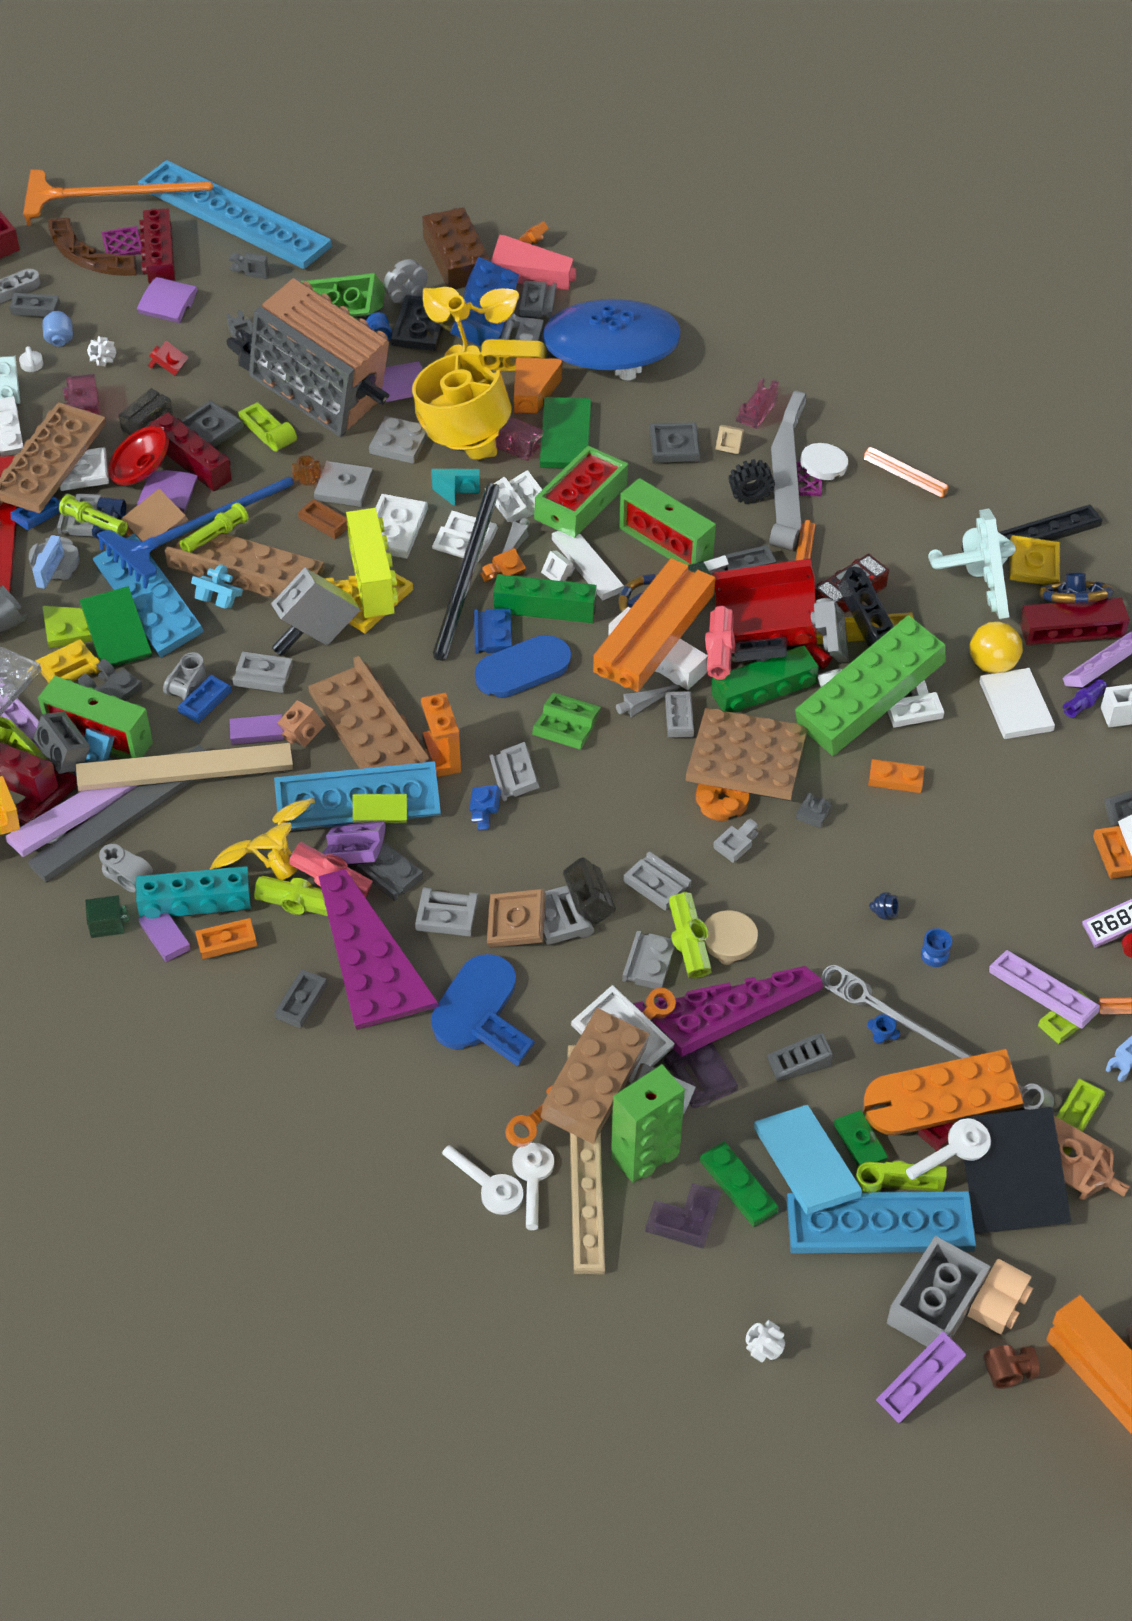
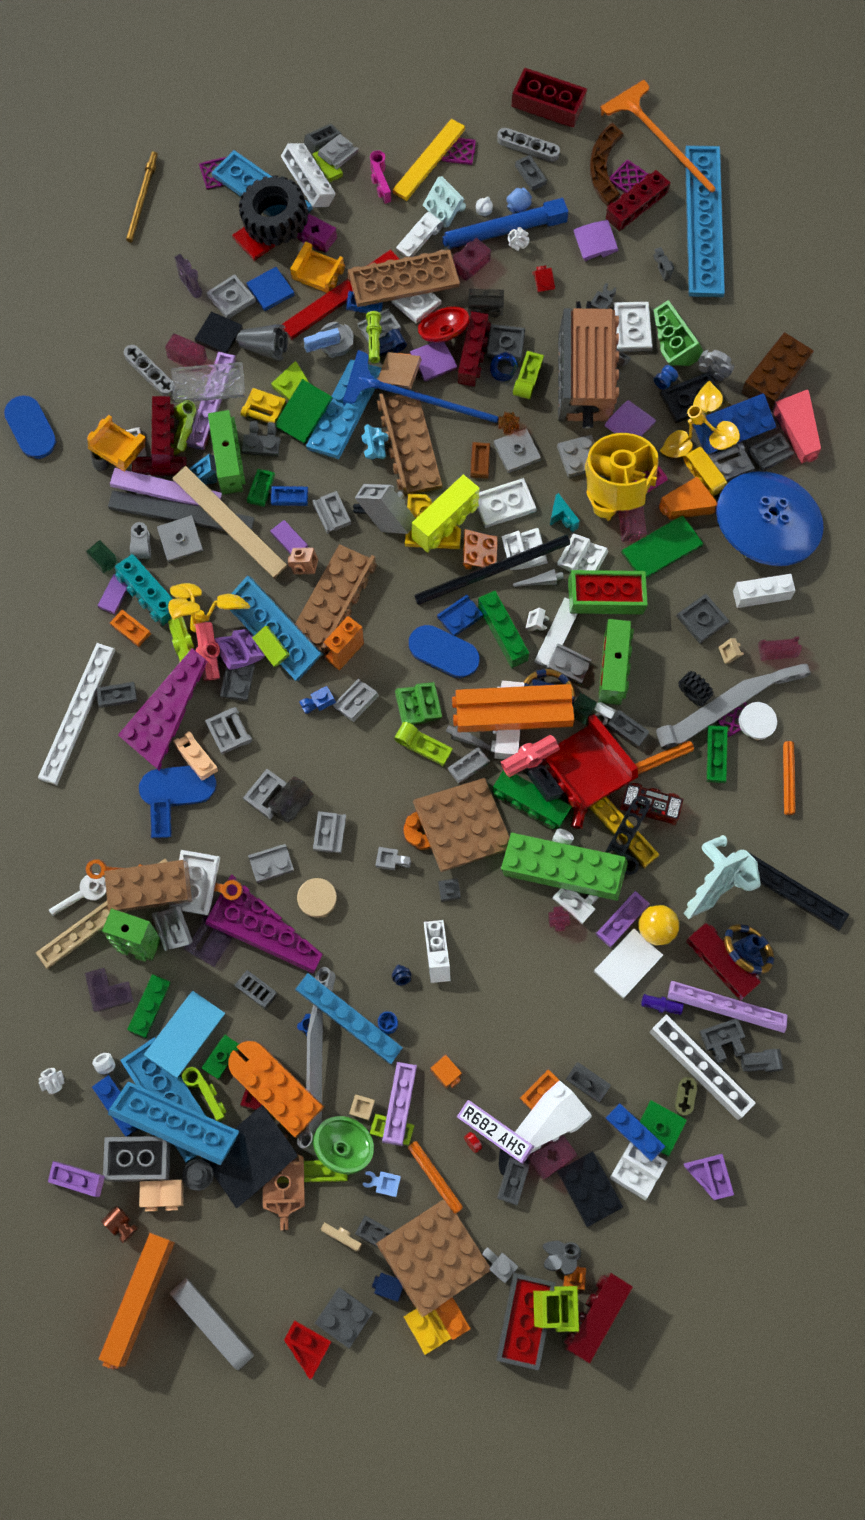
camera: 55 degrees right, 20 degrees up
(61, 741) = (192, 447): dark grey brick -> none
(100, 314) = (551, 213): none -> blue brick
(157, 827) = (180, 538): none -> light grey plate
(168, 719) = (261, 487): none -> green plate
(186, 676) = (295, 475): light grey piece -> none
(222, 524) = (424, 409): lime pin -> none
(231, 449) = (494, 370): none -> clear blue piece
(288, 1059) = (76, 714): none -> white tile
(429, 574) = (479, 549): none -> orange hinge
(452, 958) = (195, 756): none -> light nougat plate
(499, 1193) = (64, 882): white piece -> none
(505, 564) = (517, 588): orange plate -> none
(516, 918) = (246, 772): medium nougat tile -> none
(534, 234) = (828, 407): orange plate -> none
(620, 739) = (422, 744): none -> lime plate
(630, 566) = (569, 663): none -> light grey plate
(686, 380) = (764, 590): none -> white brick
(690, 935) = (306, 867): lime piece -> none
(780, 1271) = (104, 1063): none -> white tile
(830, 622) = (594, 816): light grey plate -> none
(835, 509) = (716, 754): none -> green plate
(847, 1289) = (108, 1093): none -> blue plate
(889, 858) = (437, 951): none -> white slope
(896, 776) = (512, 923): orange plate -> none
(907, 976) = (348, 1018): none -> dark azure plate
(921, 1219) = (173, 1123): none -> dark azure plate
(924, 729) = (558, 918): none -> clear pink gear
(964, 680) = (622, 919): none -> medium lavender plate
(966, 1140) = (247, 1119): white piece -> none
(999, 1241) = (197, 1175): none -> dark grey plate
(1023, 1028) = (362, 1107): none -> tan plate
(1035, 561) = (765, 906): yellow plate -> none
(1035, 924) = (446, 1072): none -> orange brick
(1063, 1064) = (348, 1137): none -> bright green dish

